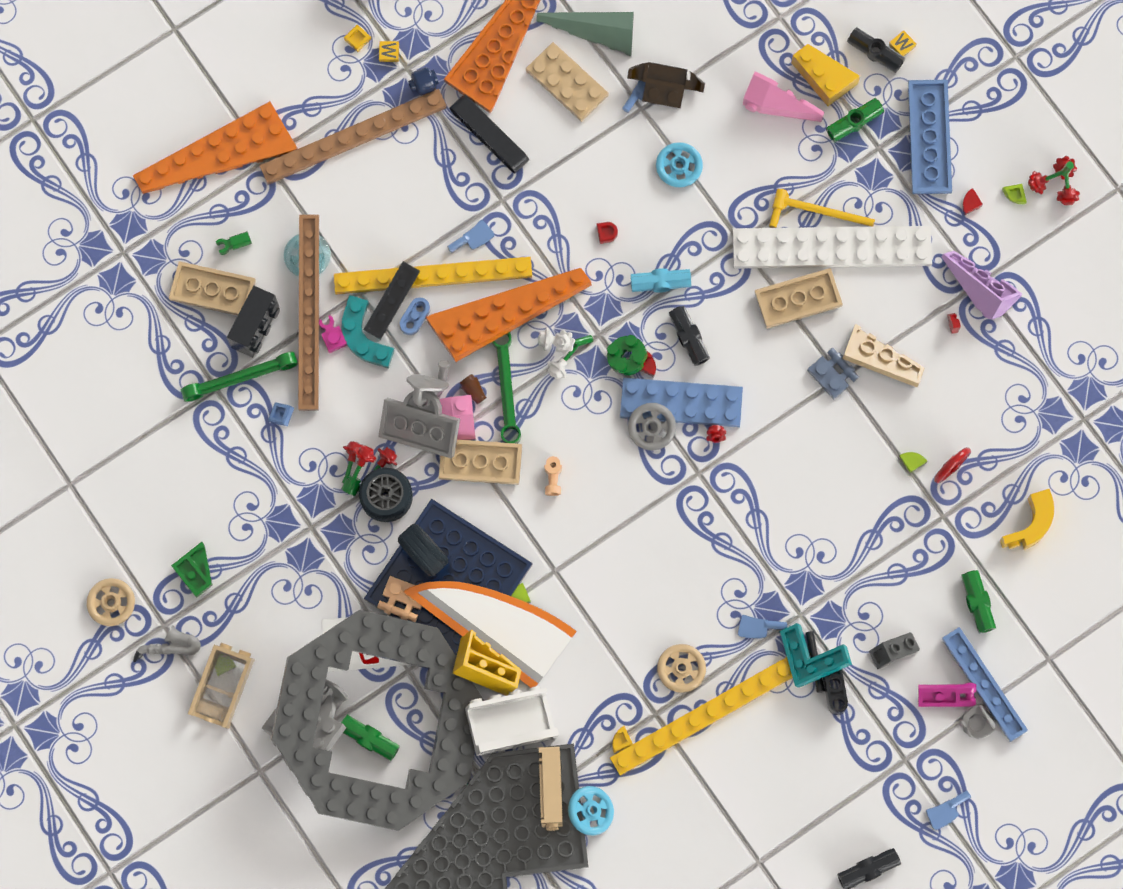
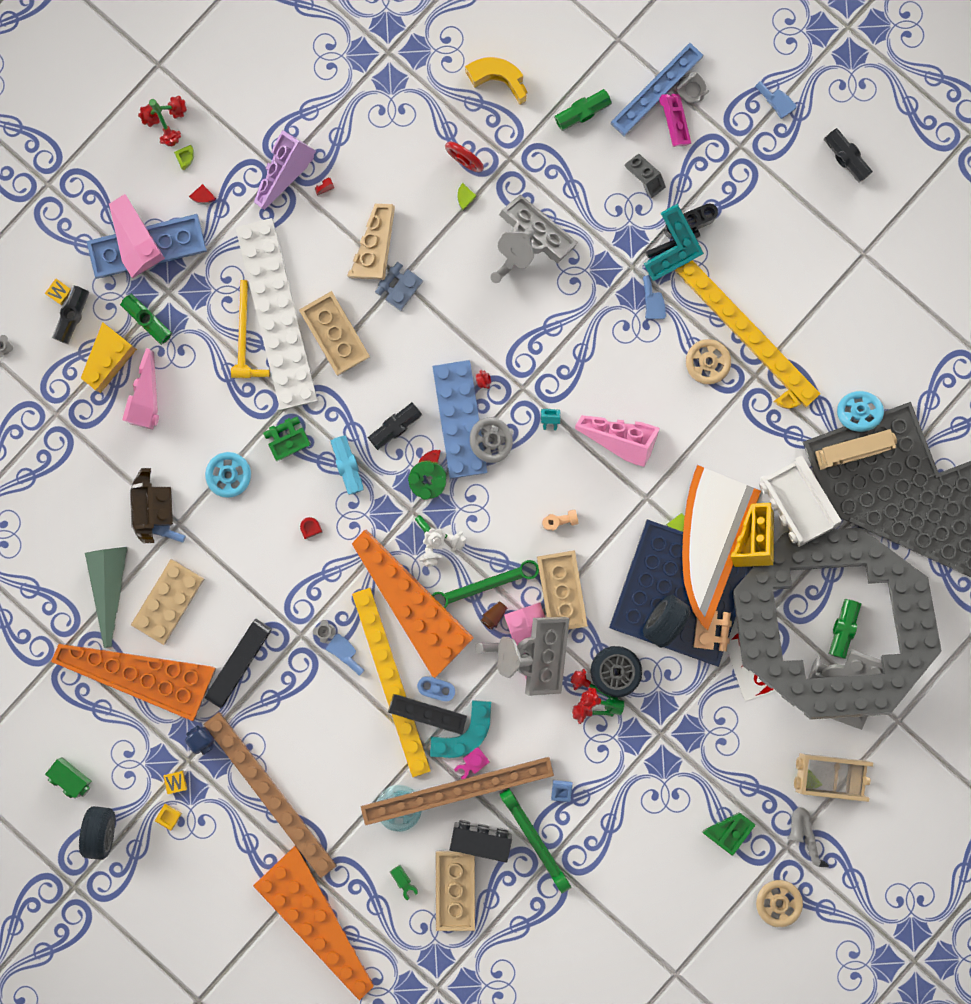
camera: 105 degrees left, 10 degrees up
(501, 216) = (324, 626): none -> light grey plate
(618, 562) = (627, 441): none -> bright pink wedge
(661, 491) = (550, 416): none -> teal tile
(696, 231) = (288, 444): none -> green plate
(860, 519) = (530, 235): none -> light grey plate
(936, 125) = (134, 240): none -> bright pink wedge

